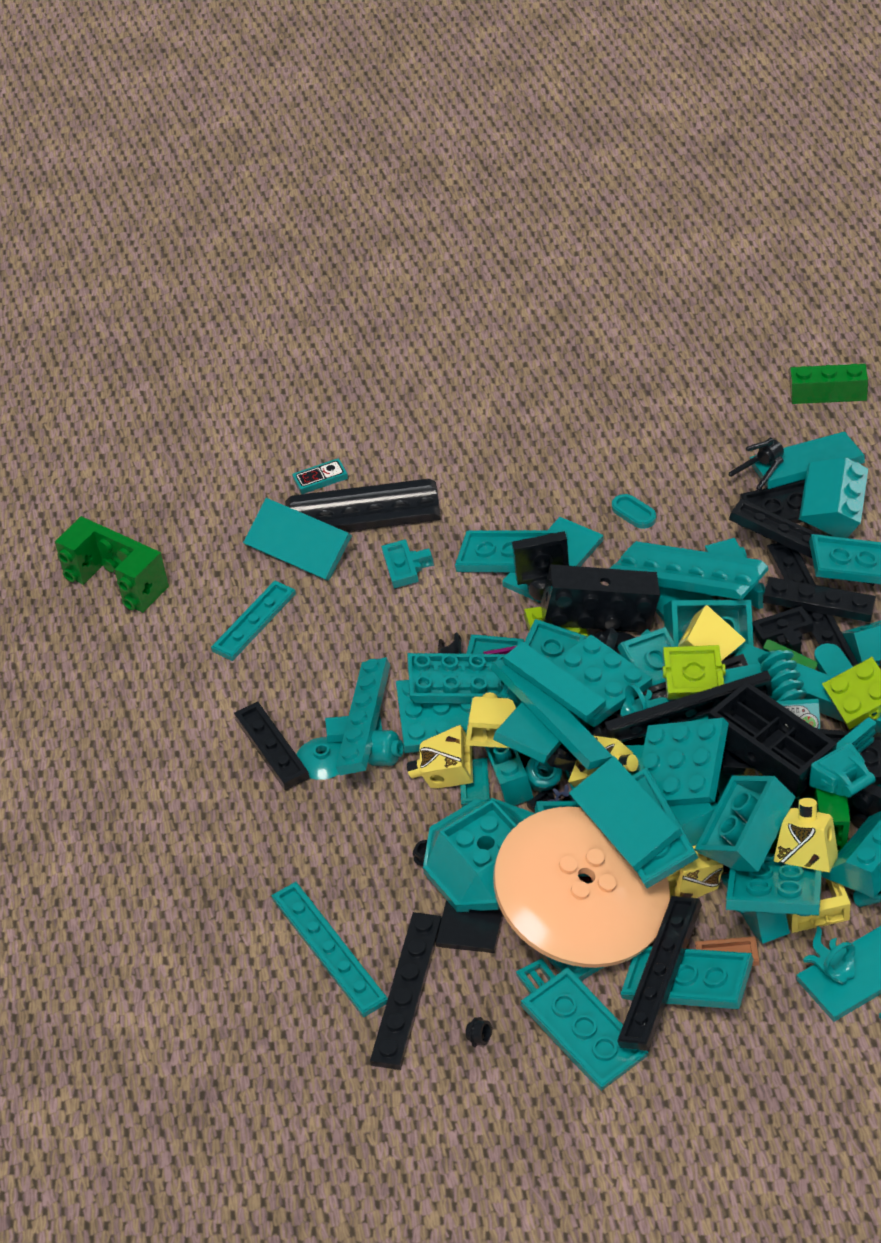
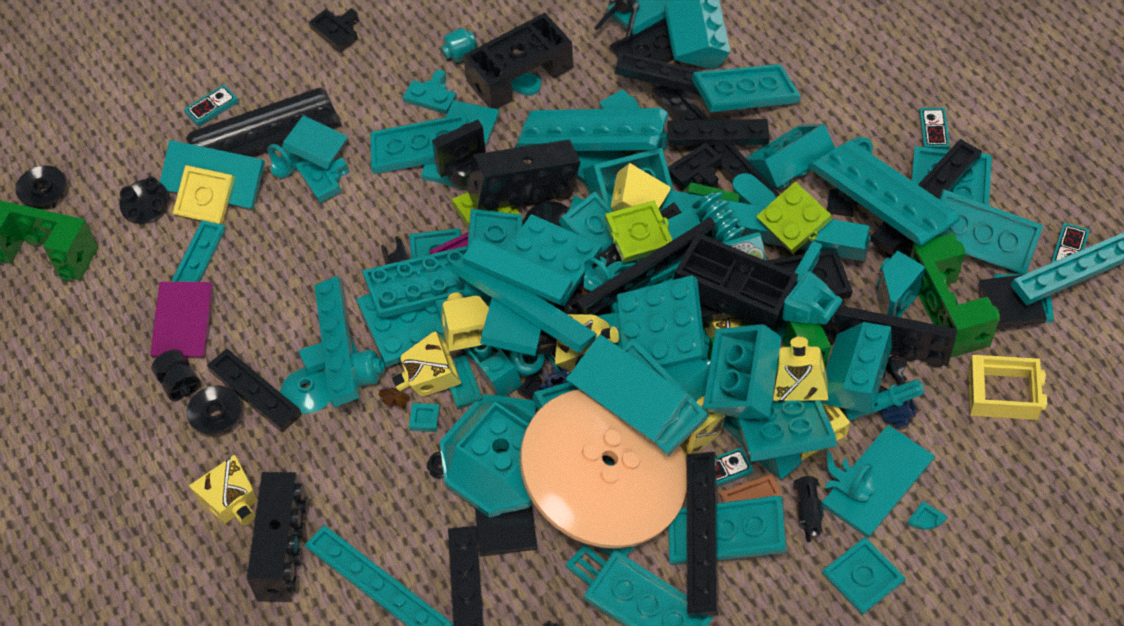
camera: 20 degrees left, 10 degrees up
(133, 517) = (34, 180): none -> black dish
(201, 714) = (175, 374): none -> black wheel
(213, 830) = (226, 492): none -> light yellow torso
(224, 667) = (182, 318): none -> magenta tile
(224, 746) = (210, 400): none -> black dish
(225, 551) = (143, 200): none -> black dish
(242, 890) = (277, 537): none -> black brick
(283, 556) = (203, 195): none -> light yellow tile
(372, 546) = (282, 165): none -> teal piece
(403, 782) = (394, 397): none -> reddish brown plant
(406, 528) = (315, 142): none -> teal tile
(426, 807) = (424, 417): none -> teal tile
(467, 427) = (336, 29): none -> black hinge
(541, 507) = (431, 94): none -> teal hinge
(584, 464) = (458, 43): none -> teal head
(610, 487) = (494, 64): none -> black plate
(714, 922) = (732, 467): none -> tile
(782, 974) = (809, 506): none -> black piece
(814, 1054) = (863, 576): none -> teal tile

